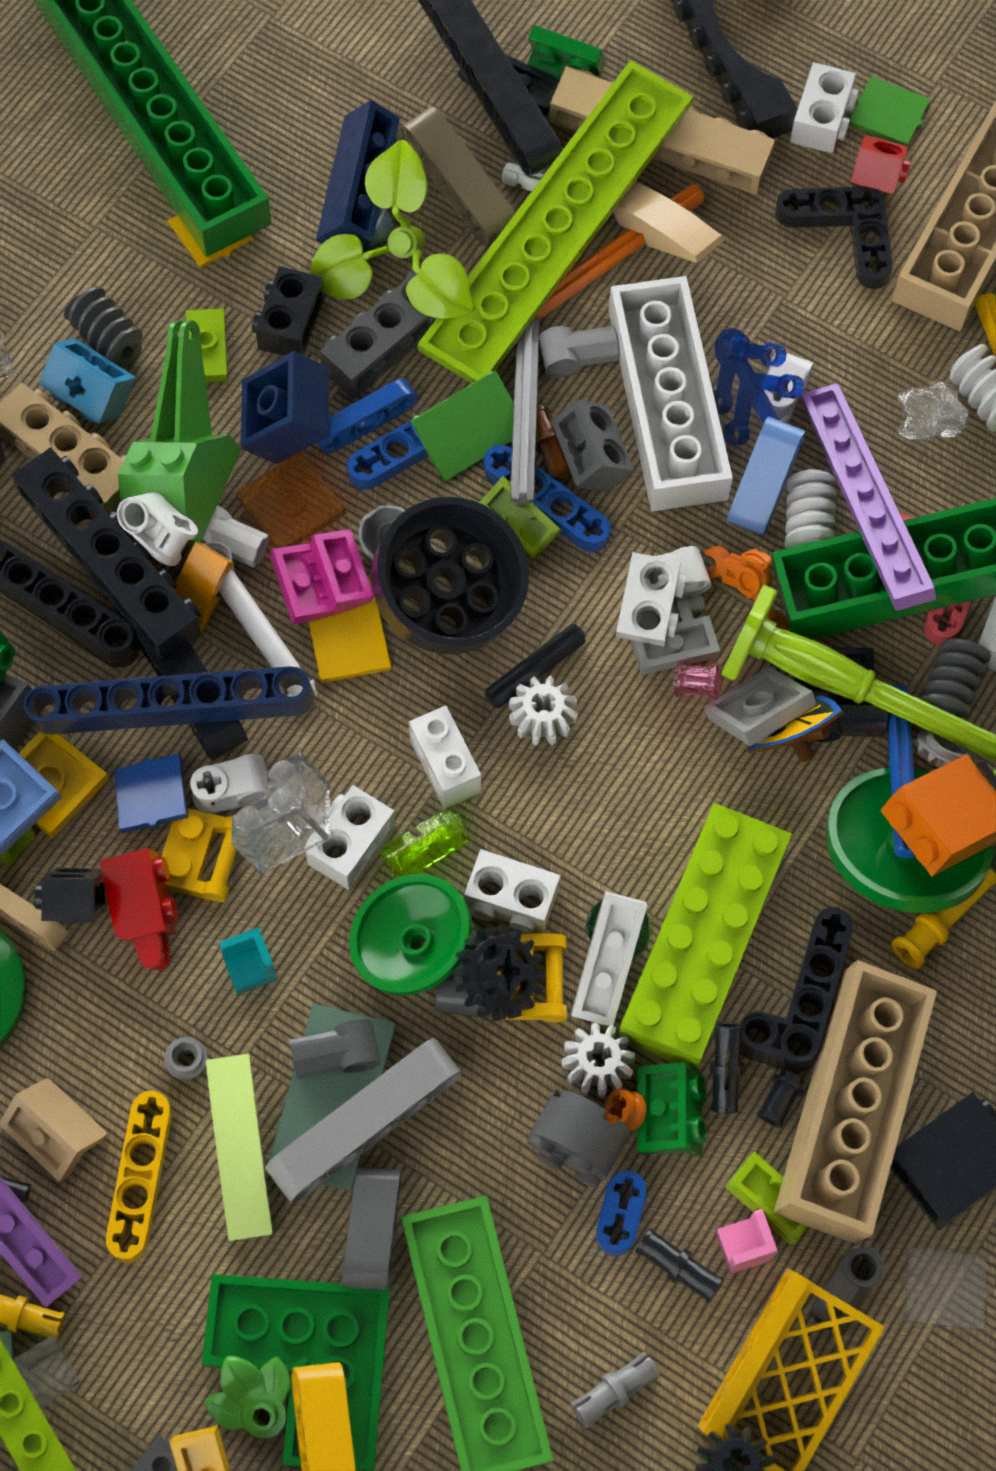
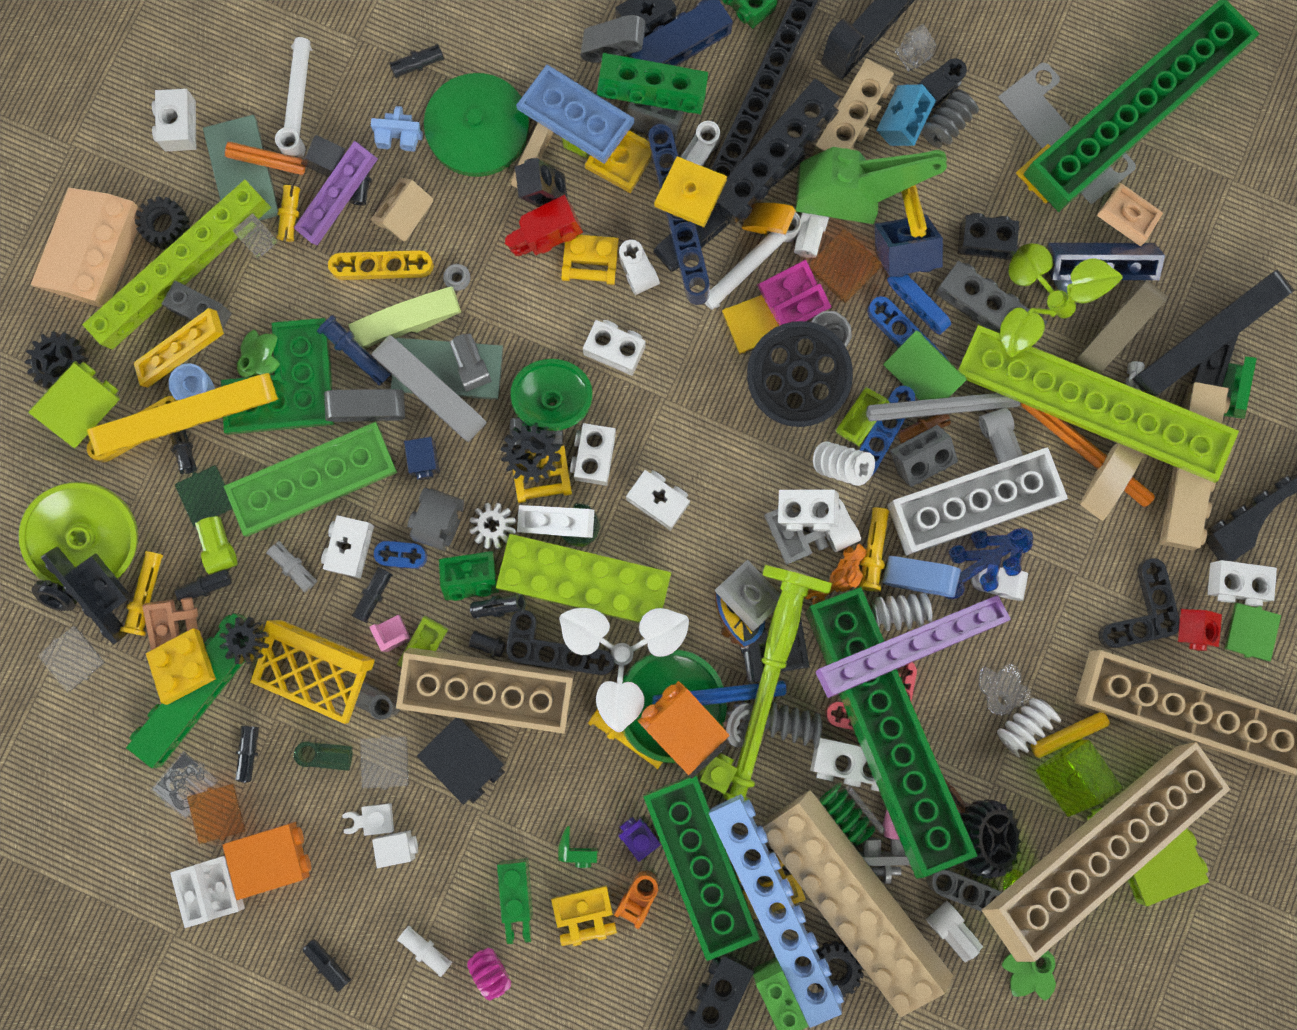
camera: 80 degrees right, 15 degrees up
(44, 322) = (940, 82): none -> black piece
(67, 664) = (699, 149): none -> white piece
(128, 222) = (1046, 125): none -> light grey piece
(145, 669) = (690, 191): none -> yellow plate
(150, 793) = (623, 219): piece -> none
(162, 529) = (798, 176): white piece -> none
(212, 342) = (953, 188): lime plate -> none
(242, 385) = (914, 211): none -> yellow axle
(248, 961) = (522, 302): teal panel -> none
(260, 1243) = (344, 341): none -> dark blue pin
(288, 819) = (617, 306): clear brick -> none
(297, 137) = (1130, 214): none -> light nougat plate
(439, 837) = (610, 386): clear neon green hinge -> none
(445, 757) = (678, 396): white brick -> none
(472, 1152) = (422, 458): none -> dark blue brick
(535, 665) = (757, 445): black axle -> none
(543, 723) = (713, 454): white gear -> none
(588, 833) = (665, 513): none -> white brick
(589, 549) = (843, 463): none -> white piece
(620, 1286) = (348, 561): none -> white brick
(626, 1107) = (463, 547): orange bush -> none
(697, 680) = (763, 551): clear pink bush -> none
(737, 537) = (872, 562): none -> yellow pin
(793, 937) = (584, 629): none -> white plant
(928, 1374) = (326, 756): none -> clear green piece

